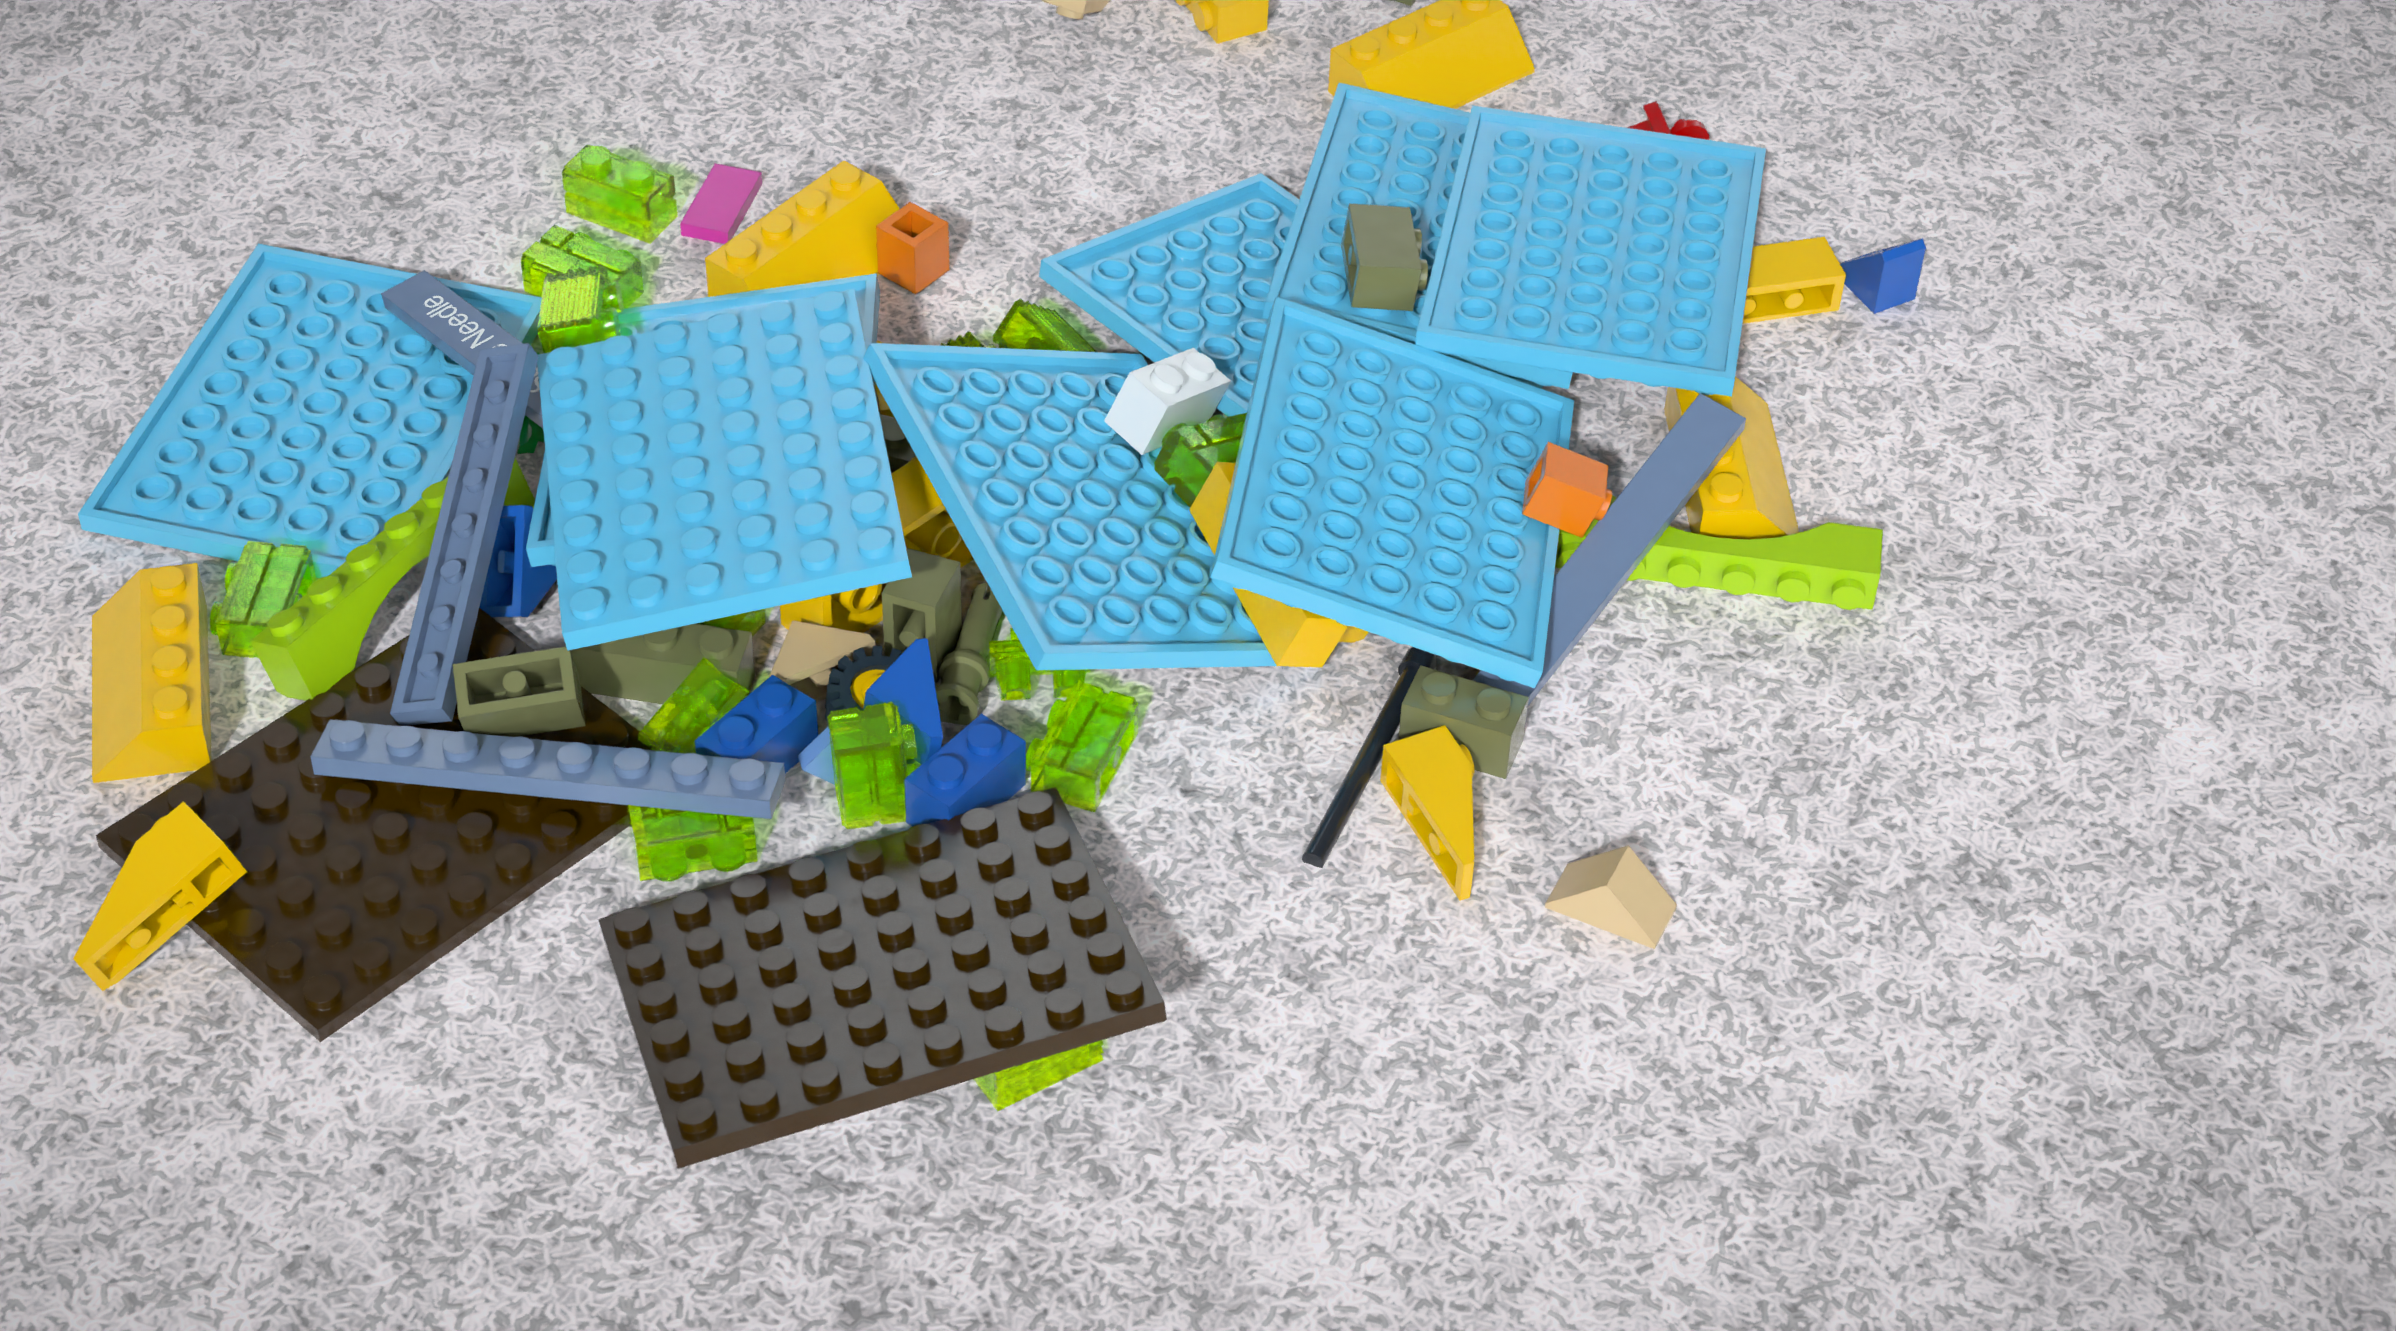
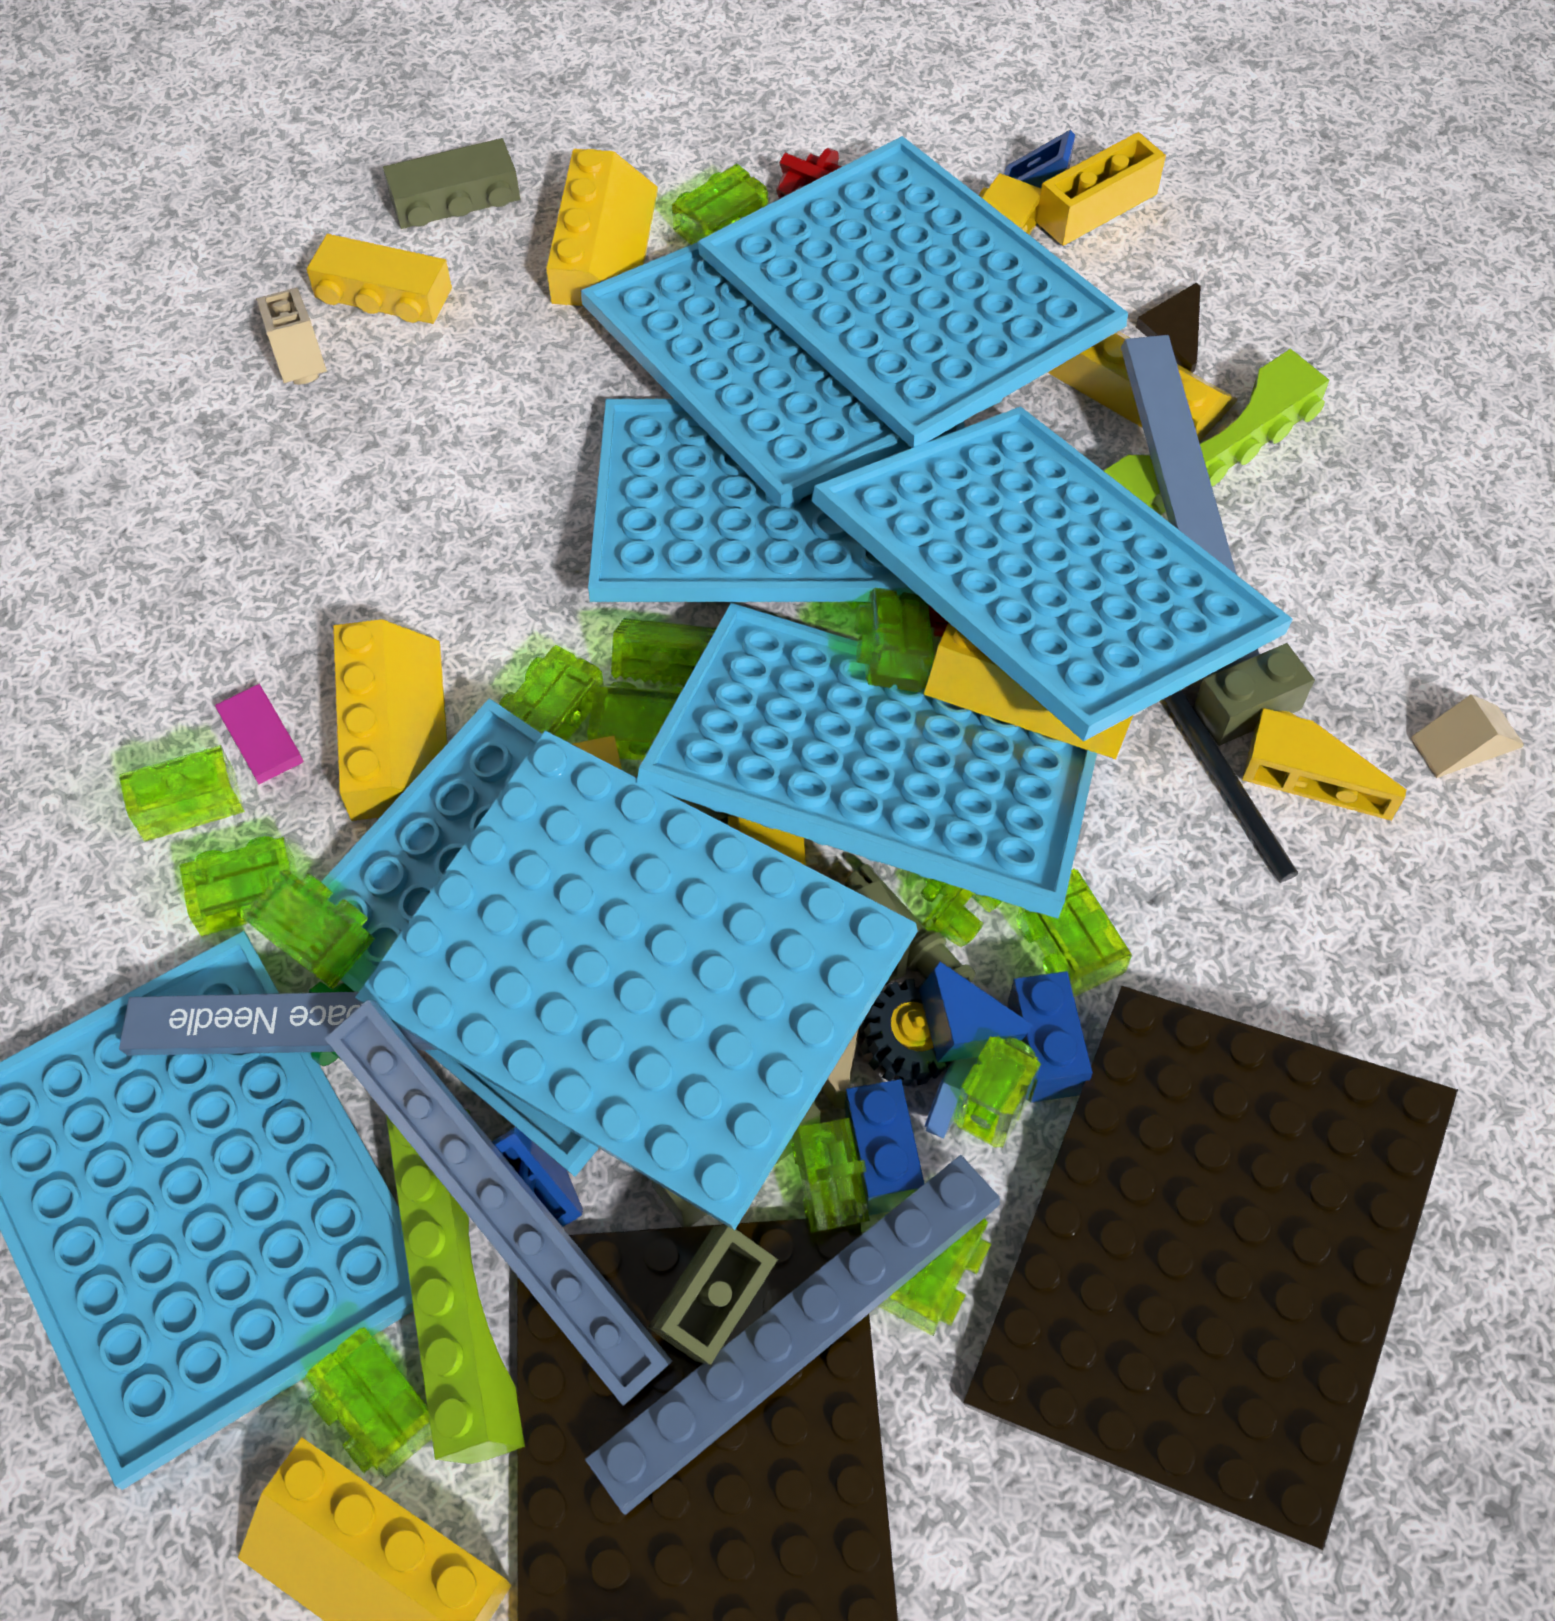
camera: 45 degrees left, 15 degrees up
(913, 247) = (461, 653): orange brick -> none
(932, 317) = (555, 693): none -> clear neon green brick
(1166, 394) = (823, 625): white brick -> none
(1382, 257) = (813, 399): olive brick -> none
(1555, 98) = (717, 203): none -> clear neon green brick
(1566, 490) = (1135, 475): orange brick -> none
(1834, 459) = (1180, 321): none -> dark brown tile
(1907, 311) = (1100, 188): none -> yellow brick

